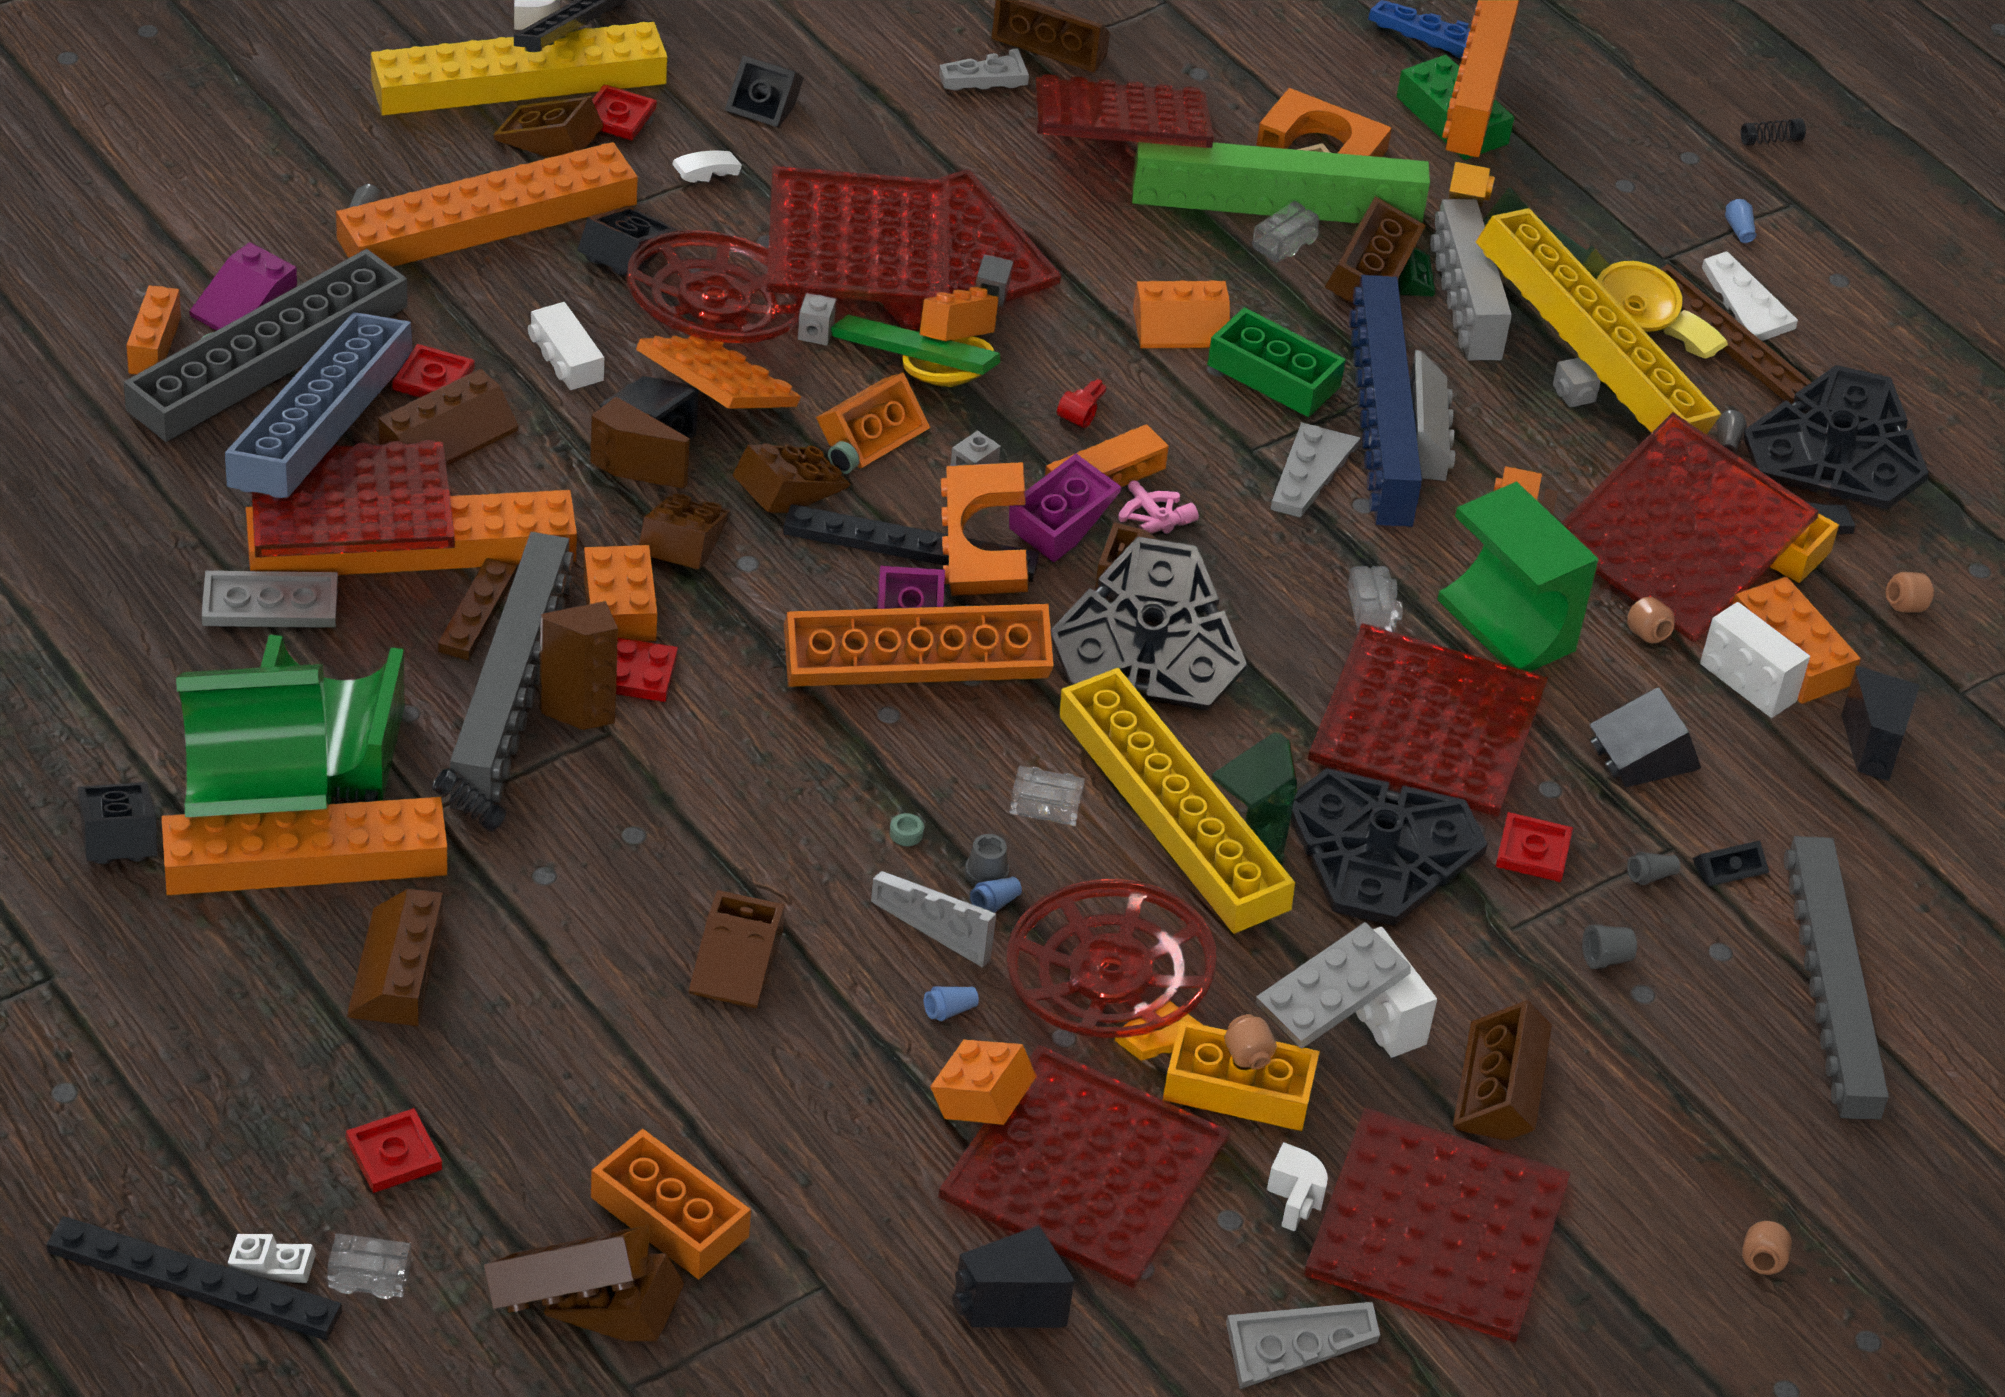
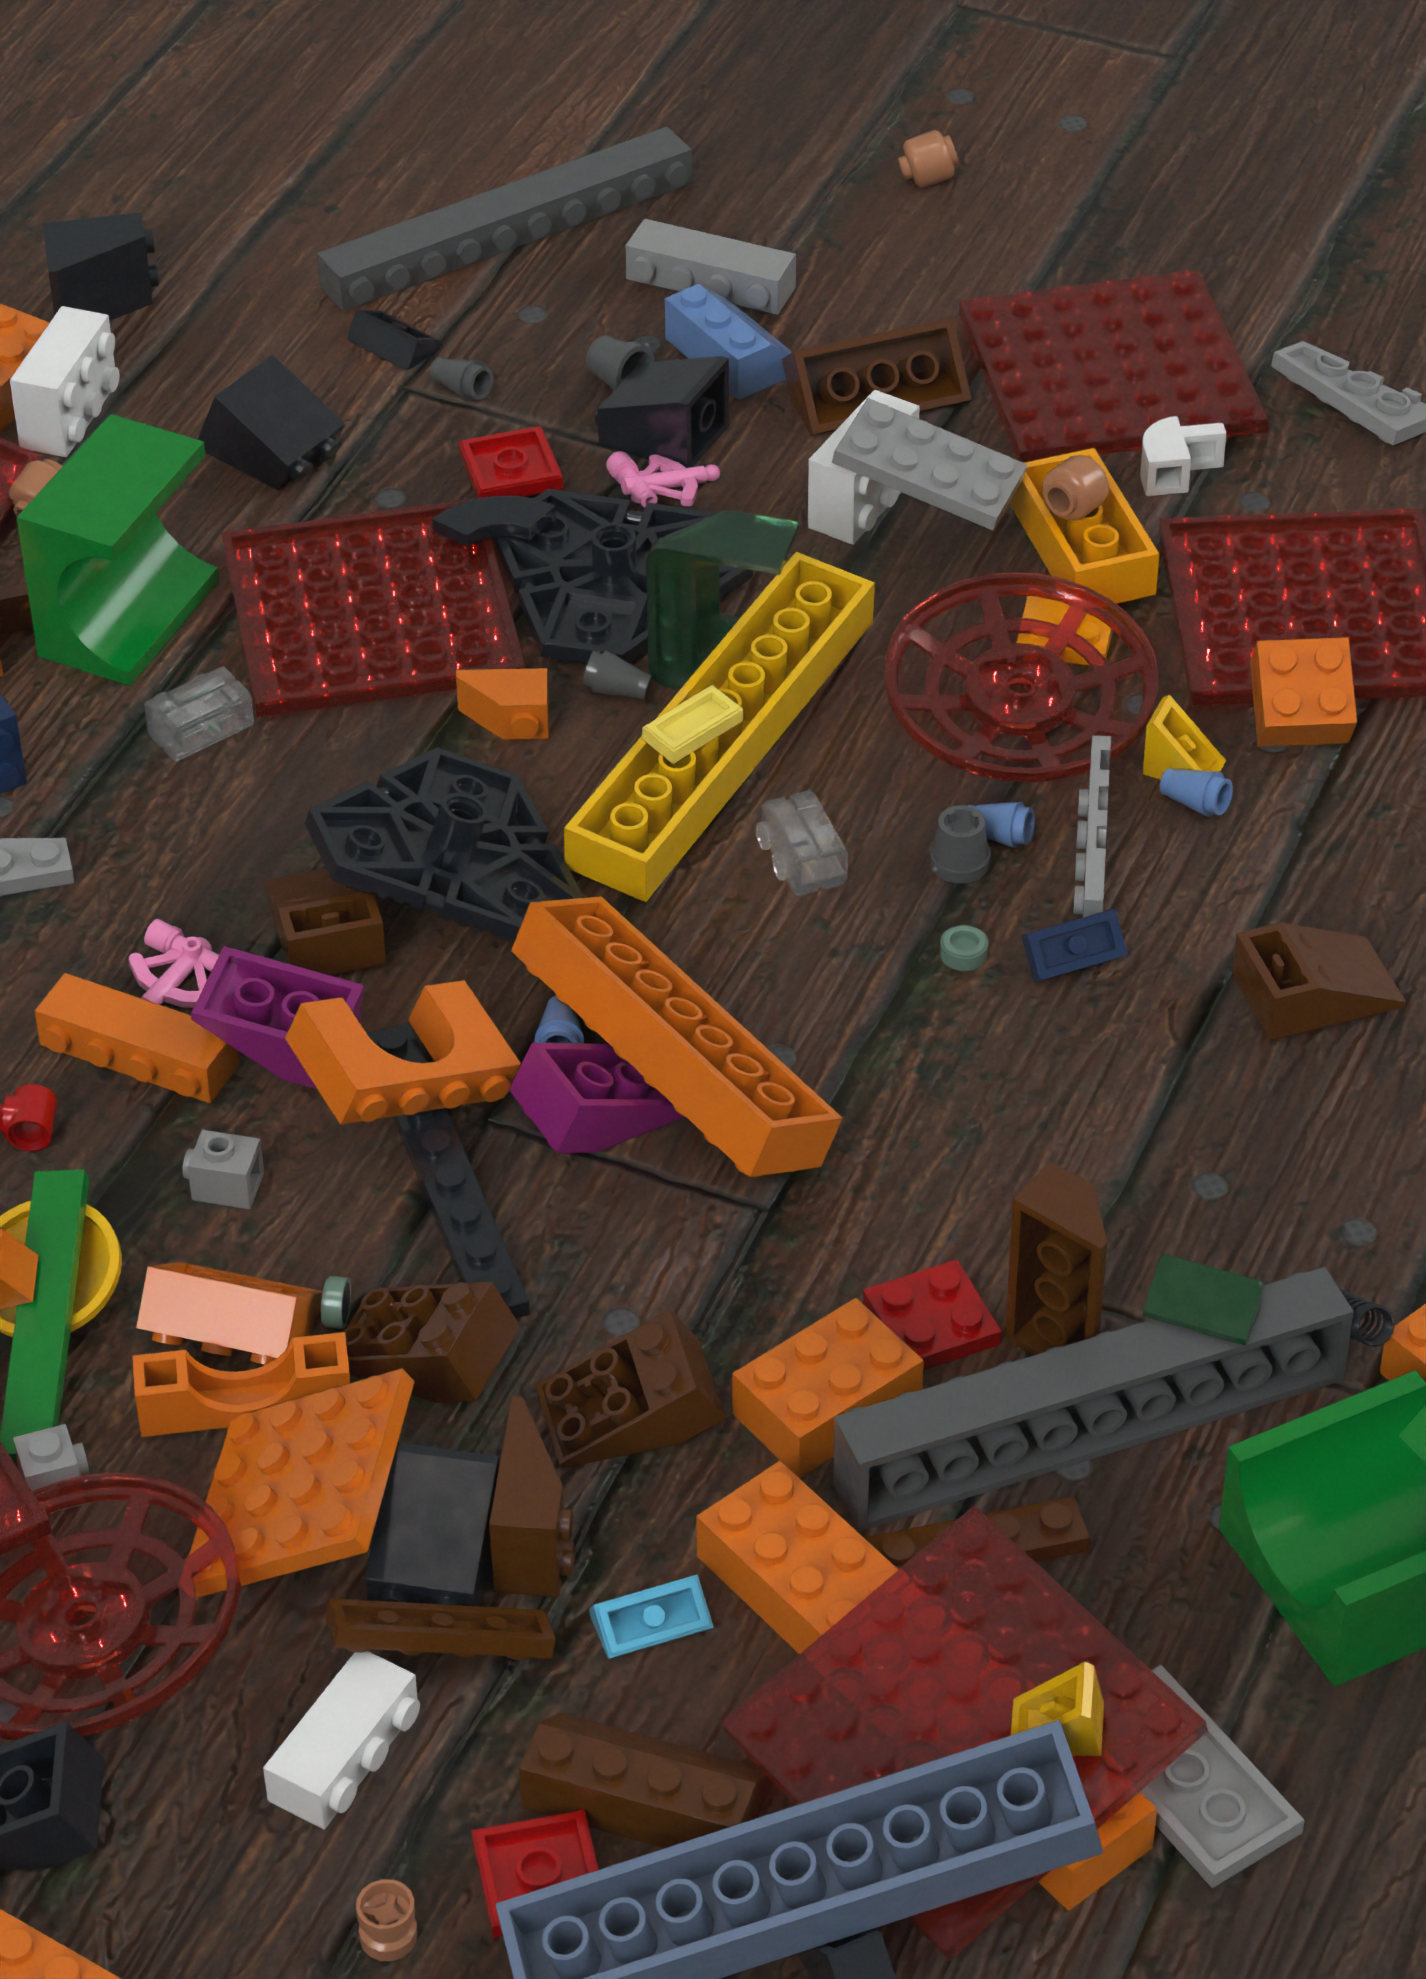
camera: 115 degrees left, 0 degrees up
(297, 494) = (1073, 1700): none -> yellow slope
(453, 317) = (386, 1920): none -> nougat wheel
(507, 699) = (1204, 1299): none -> dark green slope
(548, 473) = (651, 1616): none -> medium azure slope
(591, 388) = (439, 1629): none -> reddish brown plate
(796, 415) = (185, 1396): none -> orange arch
(860, 866) = (1074, 945): none -> dark blue plate
(991, 1008) = (1177, 743): none -> yellow slope
(1161, 754) = (692, 724): none -> light yellow tile
(1289, 720) = (506, 701): none -> orange slope
(1465, 897) = (647, 483): none -> bright pink piece
(1466, 796) = (494, 518): none -> black tile
(1529, 936) = (668, 409): none -> black slope
(1602, 1020) = (712, 326): none -> medium blue slope
(1700, 1052) = (731, 268): none -> light grey brick

